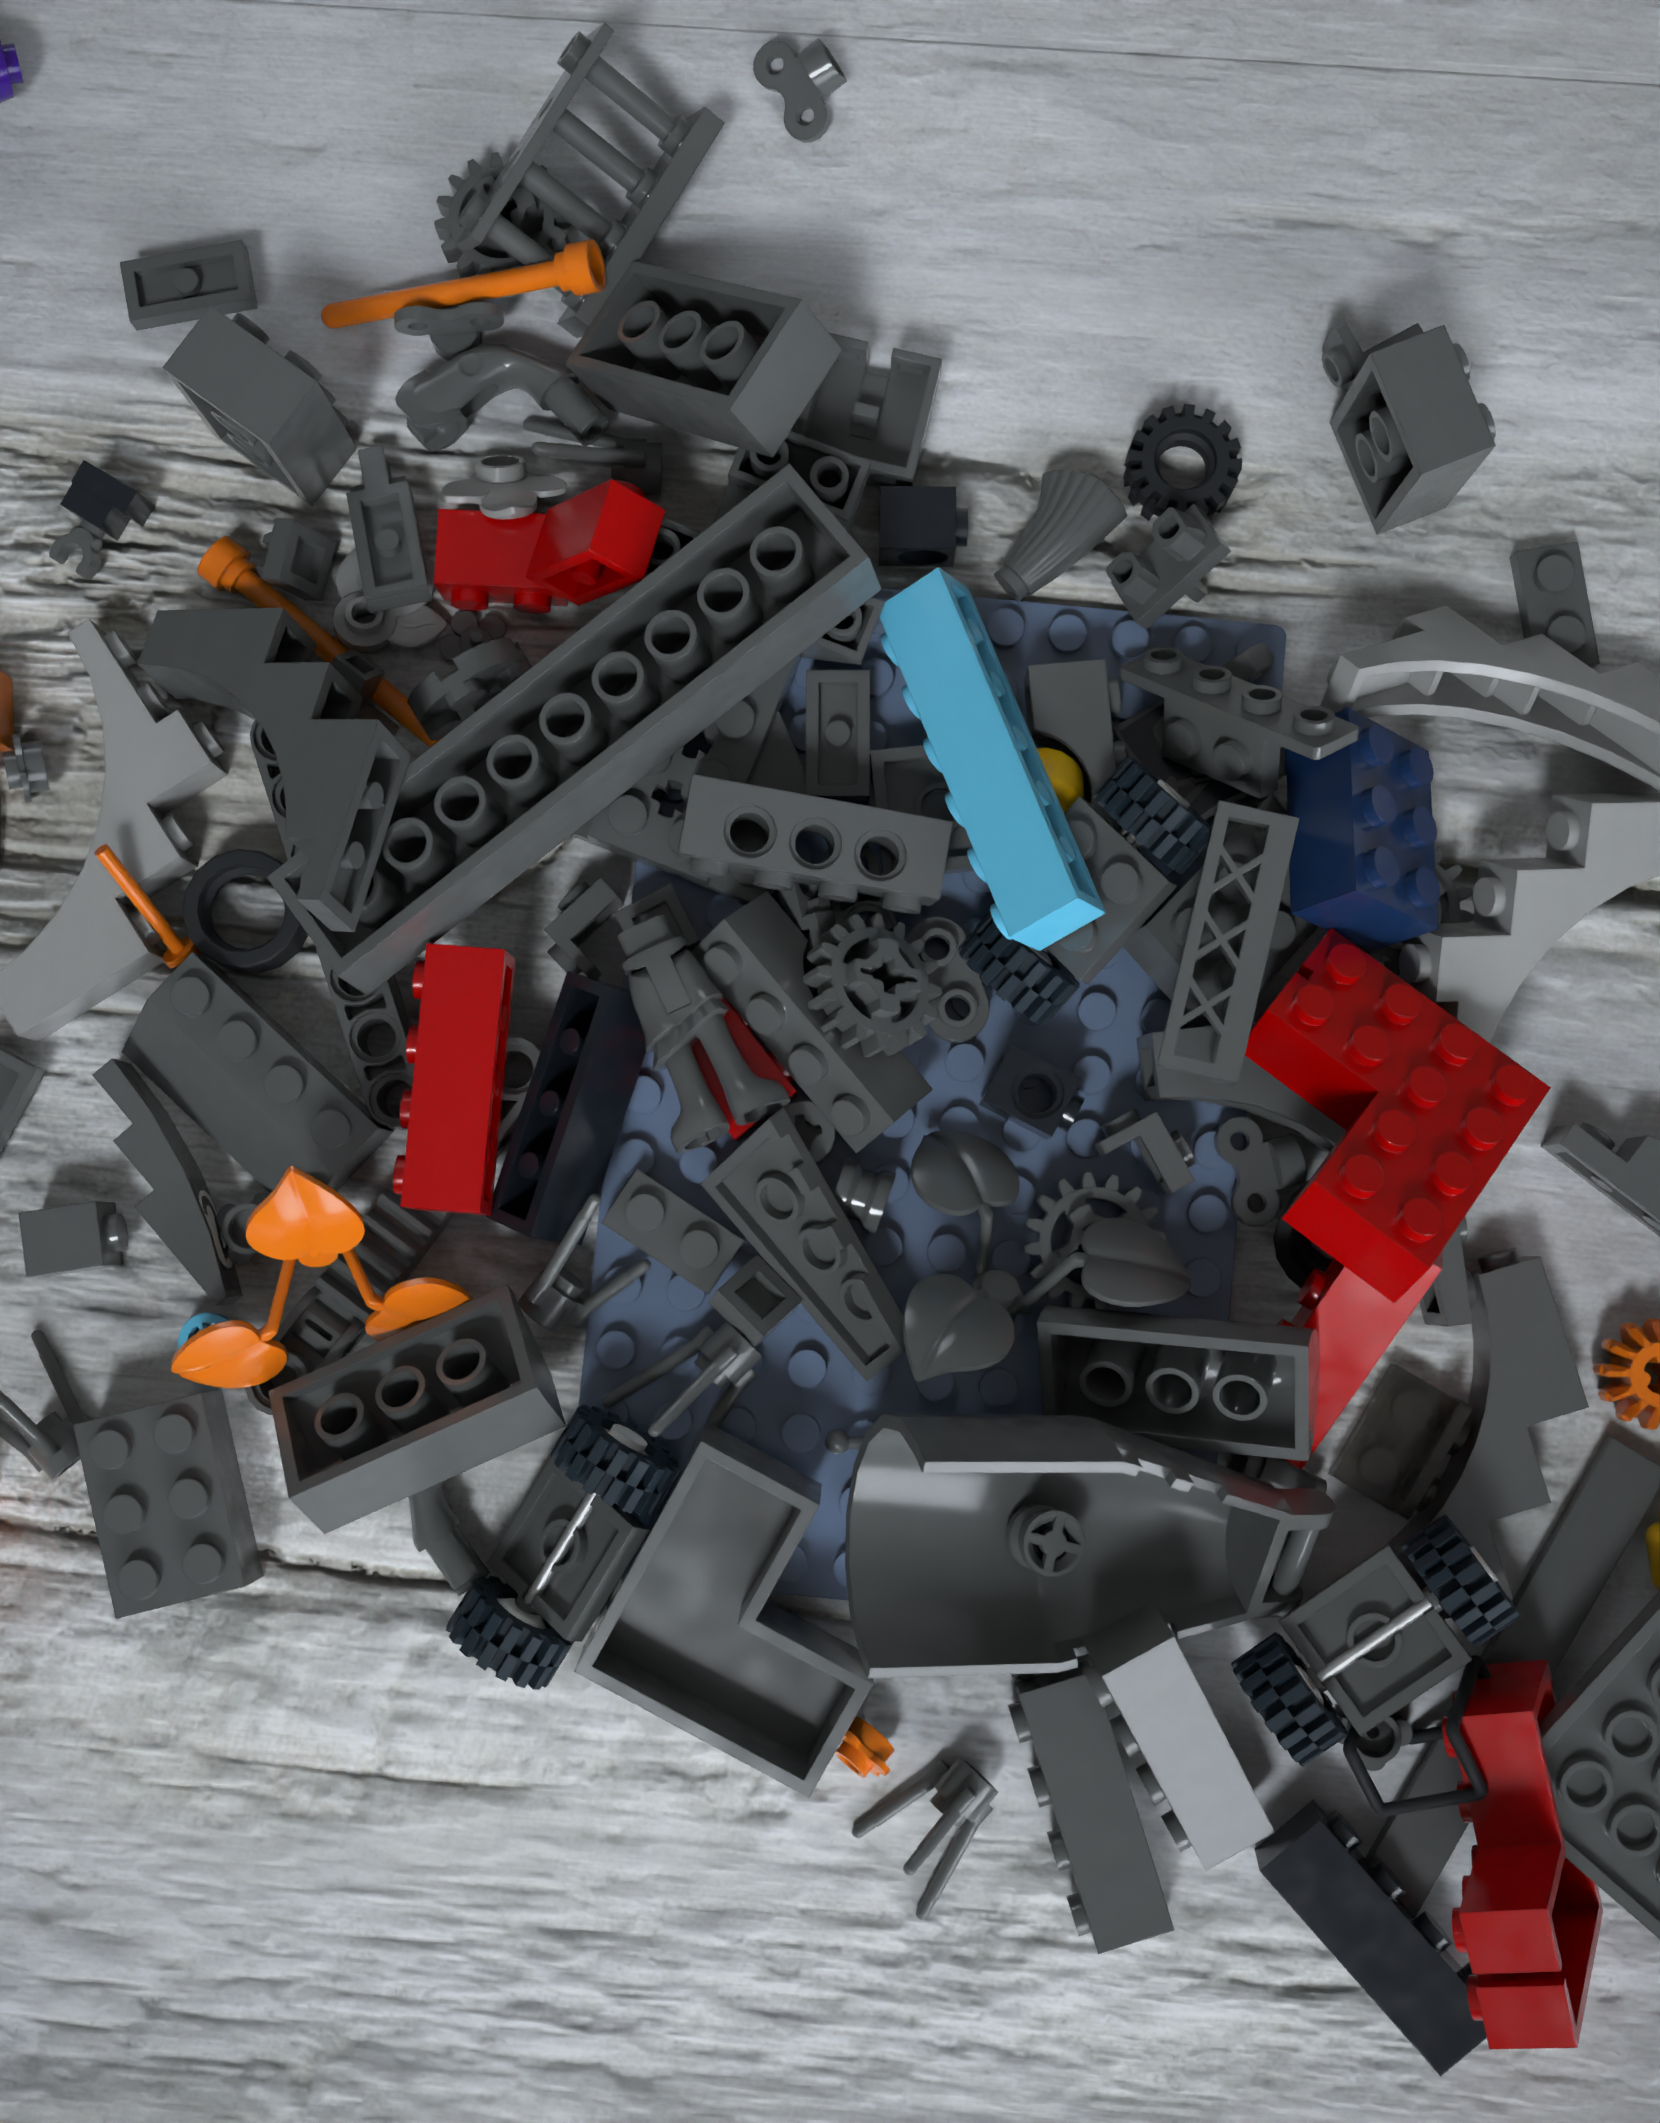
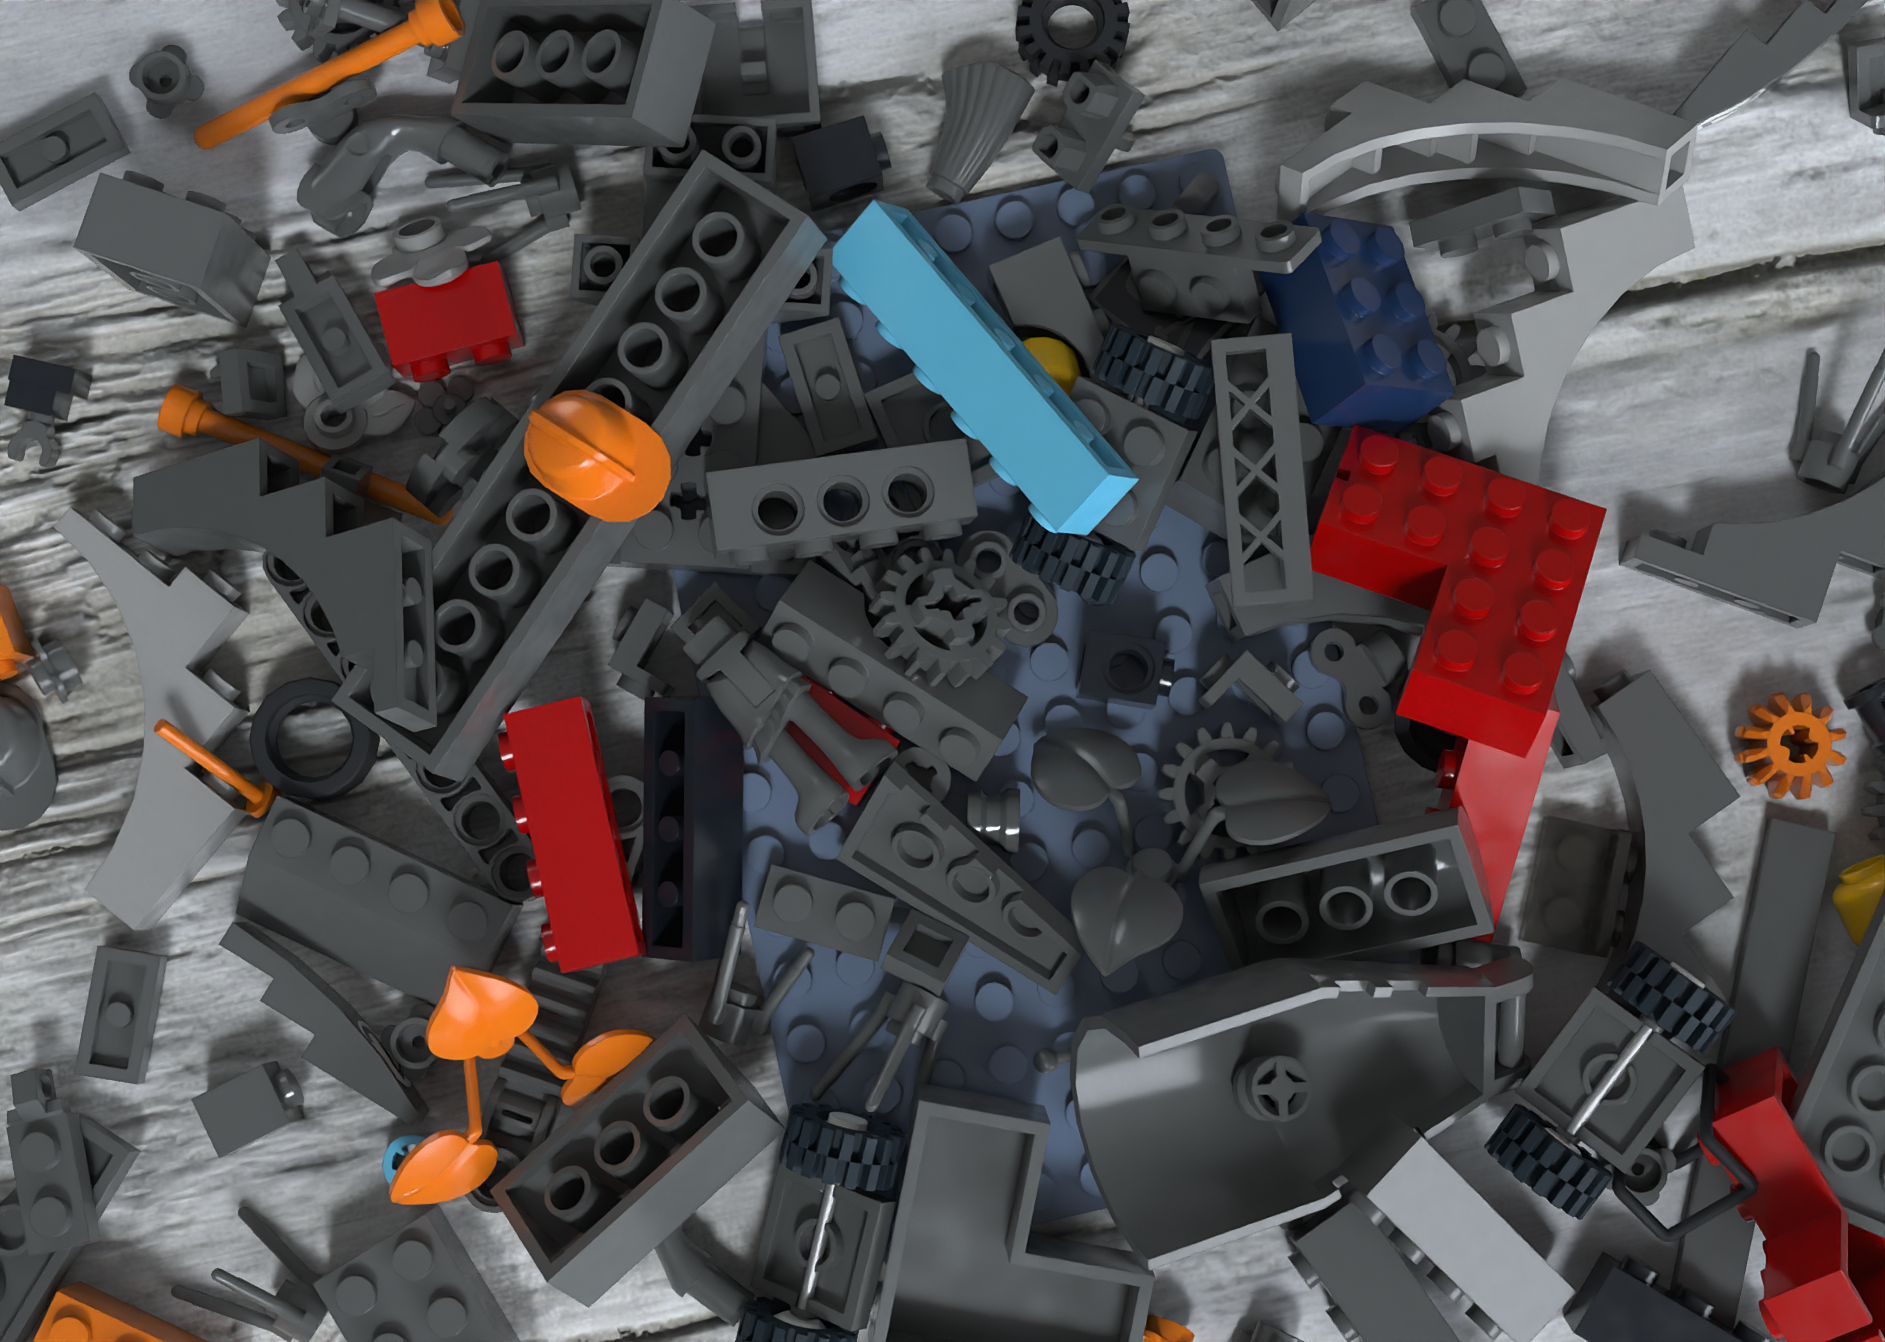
camera: 25 degrees left, 0 degrees up
(310, 234) = (160, 64): none -> dark grey plate
(592, 724) = (597, 456): none -> orange piece
(596, 542) = (539, 279): red brick -> none
(1536, 773) = (1500, 215): none -> dark grey plate

